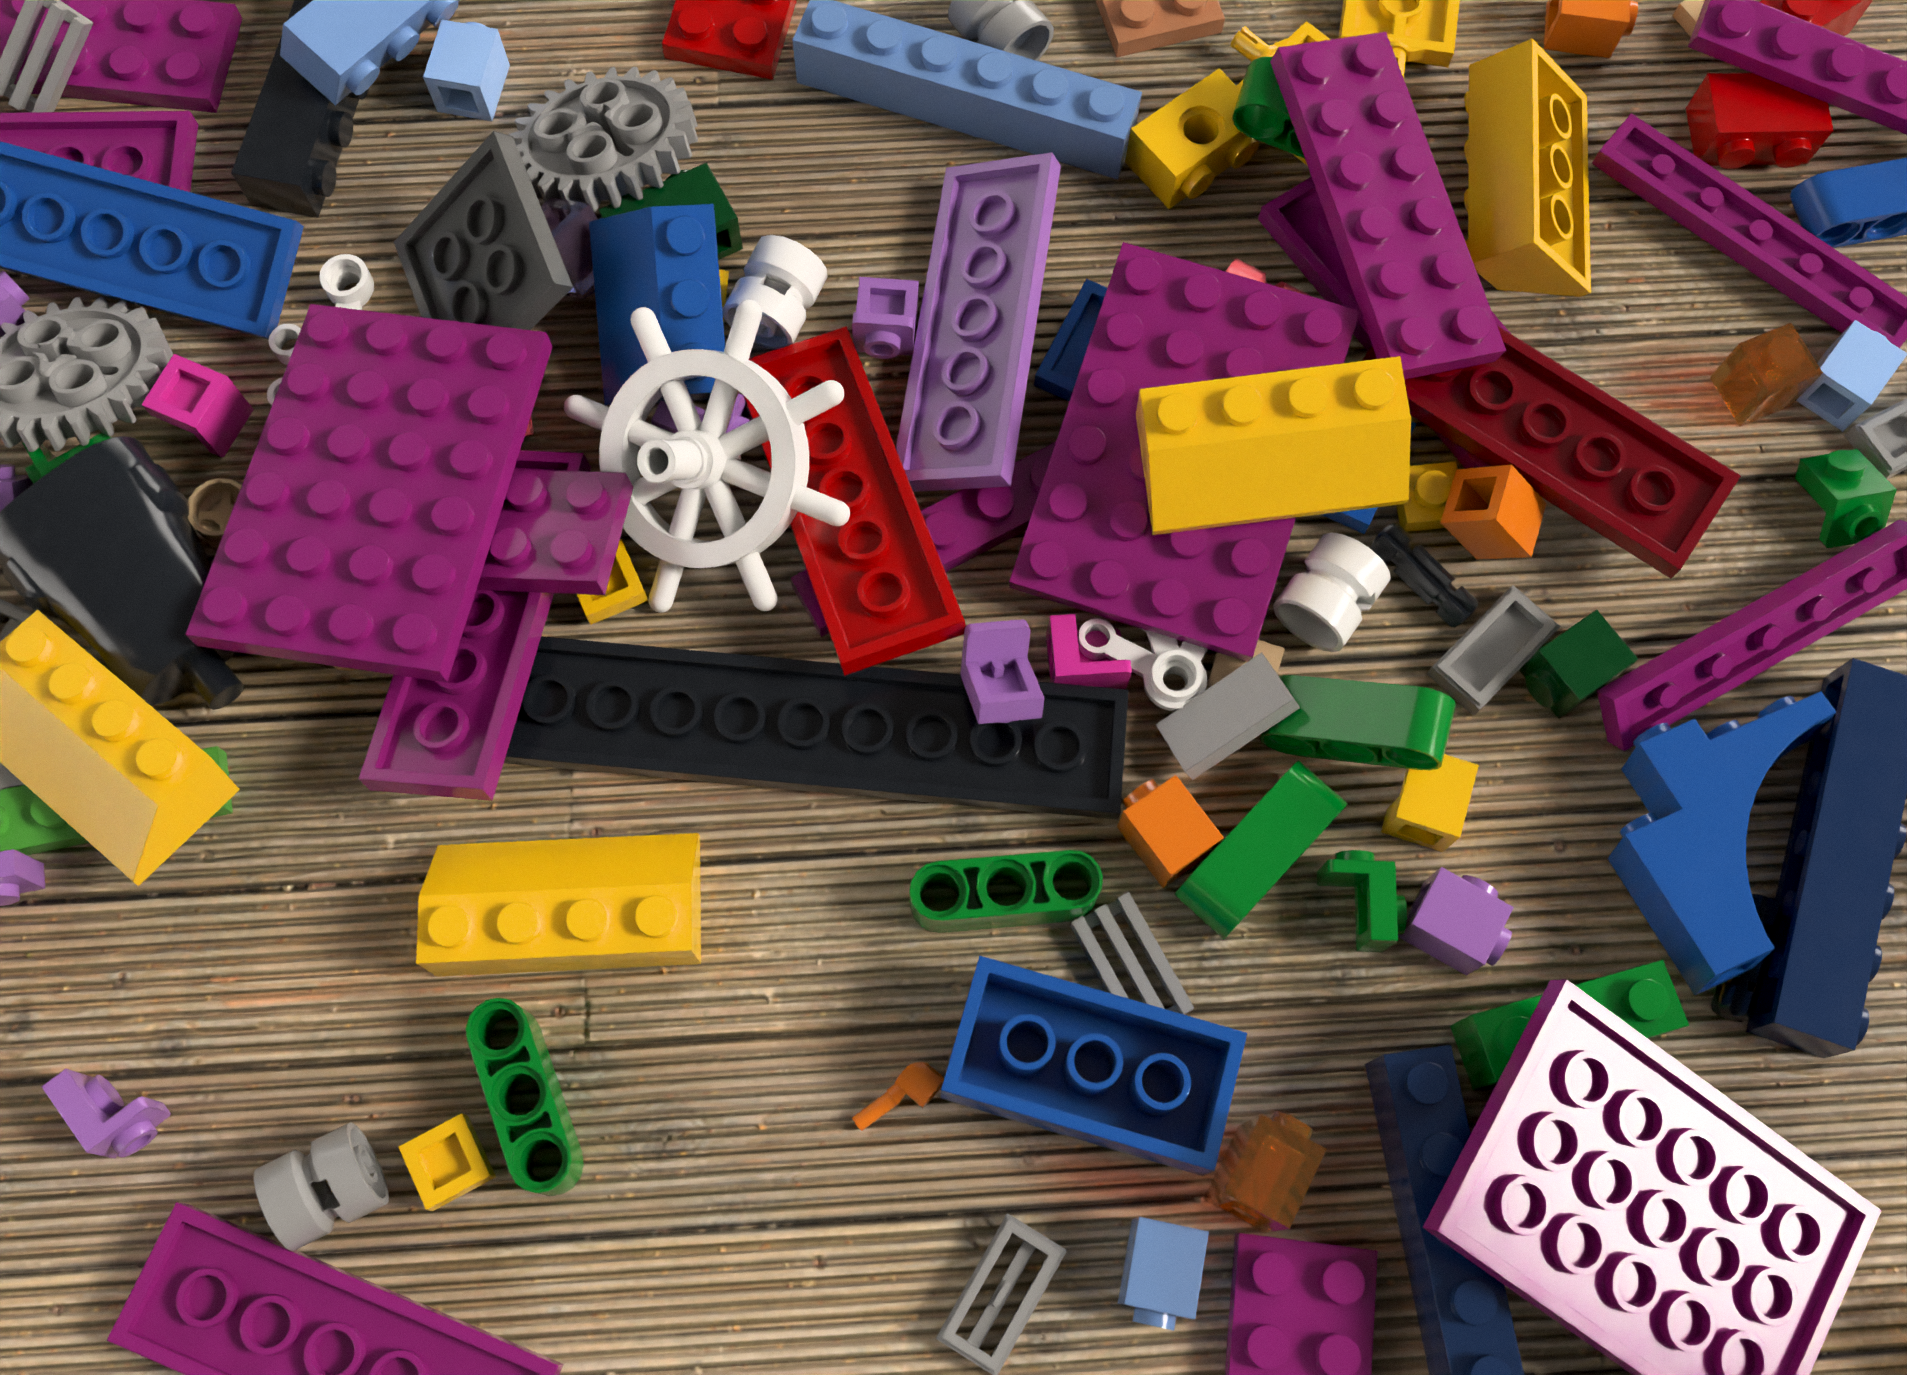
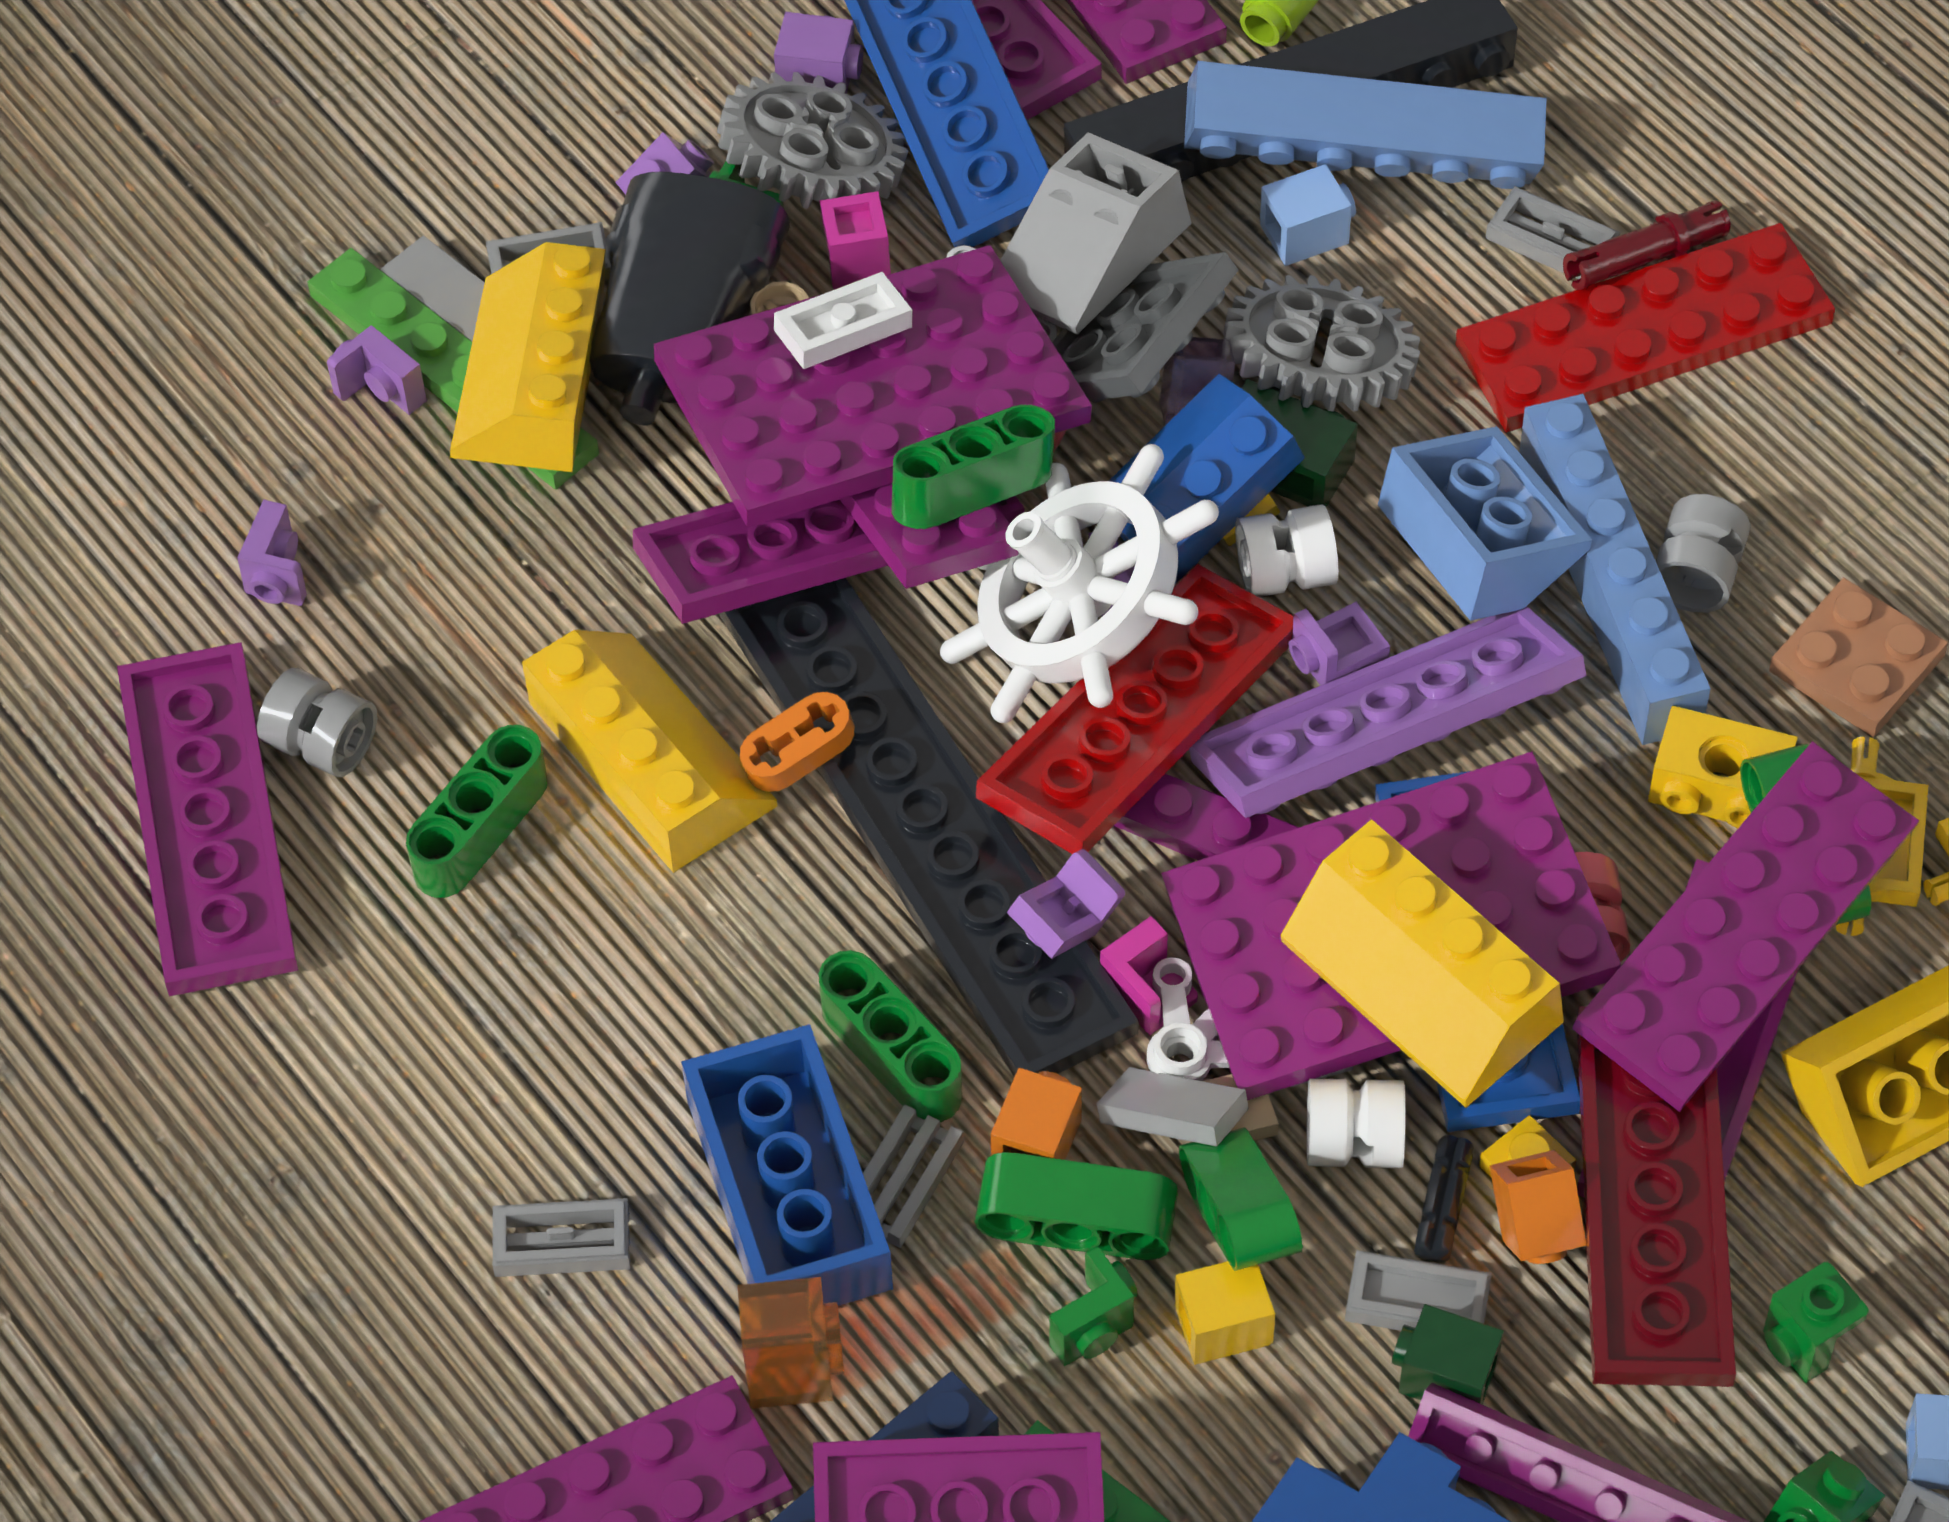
camera: 60 degrees right, 15 degrees down
(306, 463) = (842, 320): none -> white plate
(365, 217) = (1093, 230): none -> light grey slope
(447, 1162) = (392, 794): yellow plate -> none
(539, 461) = (972, 466): none -> green beam
(622, 592) = (935, 605): yellow plate -> none
(655, 779) = (797, 741): none -> orange beam
(864, 140) = (1480, 520): none -> medium blue slope
(916, 1081) = (662, 1065): orange hand -> none
(1162, 1272) = (659, 1331): medium blue brick -> none
(1458, 921) = (1128, 1390): medium lavender brick -> none
(1710, 396) = (1810, 1317): none -> green bracket
(1765, 374) = (1886, 1365): clear orange brick -> none

